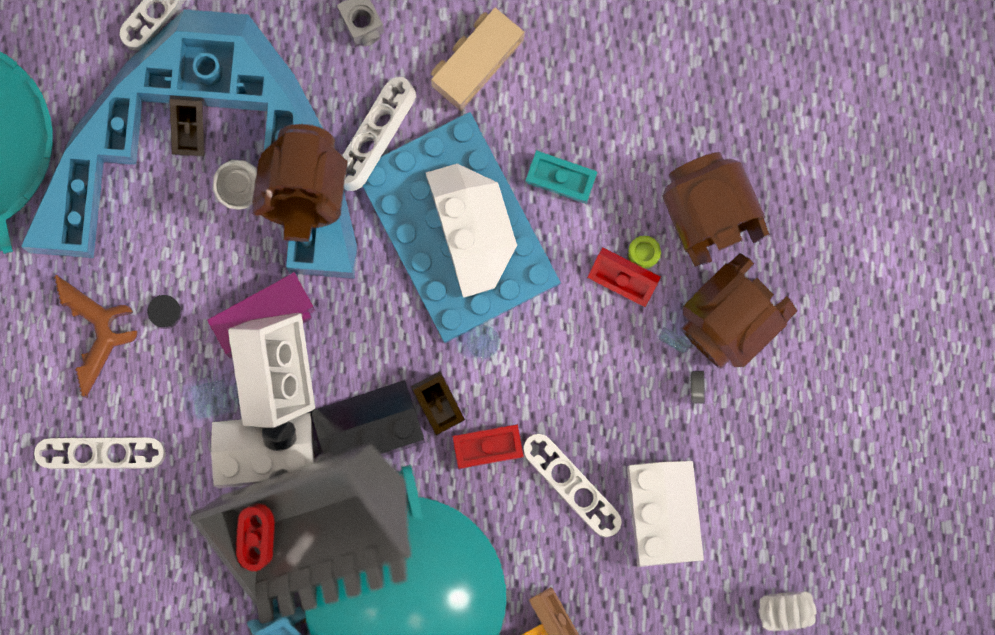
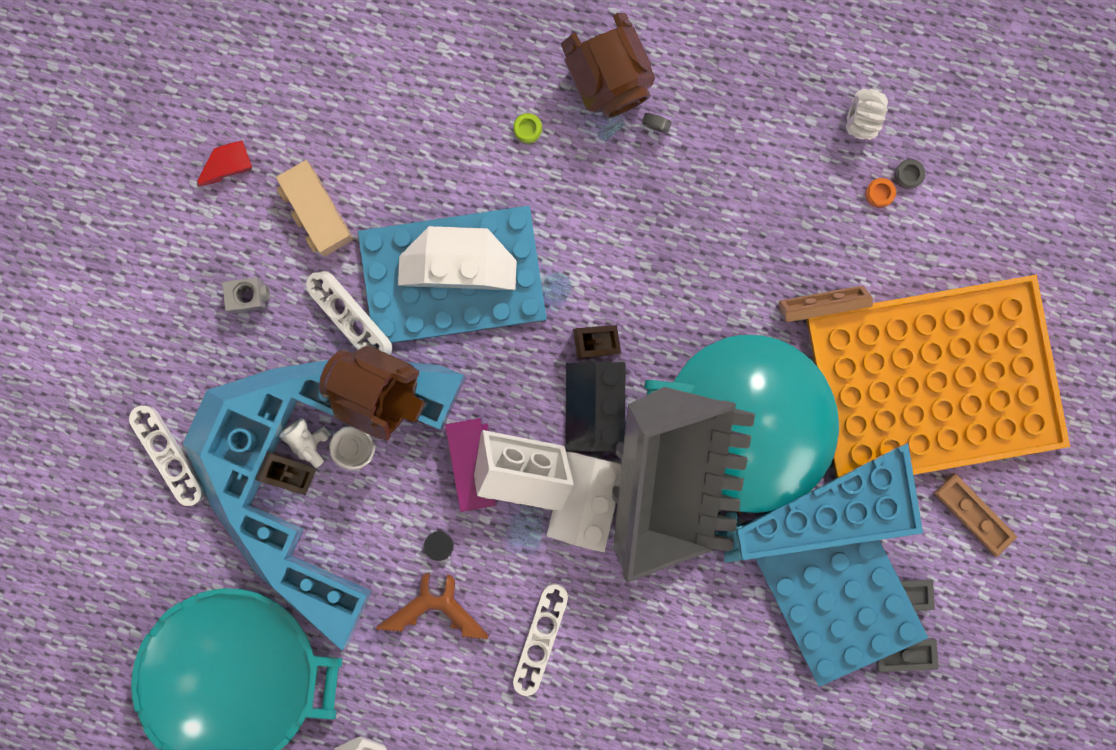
camera: 70 degrees left, 5 degrees up
(226, 133) = (303, 442): none -> white piece
(254, 534) = (658, 529): red plate -> none
(279, 437) = (583, 482): black tile -> none
(488, 446) = (646, 313): red plate -> none
(561, 177) = (440, 173): teal plate -> none
(575, 482) = (702, 257): white beam -> none
(624, 277) = (543, 151): red plate -> none
(665, 513) = (751, 188): white slope -> none
(713, 205) = (509, 52): reddish brown piece -> none

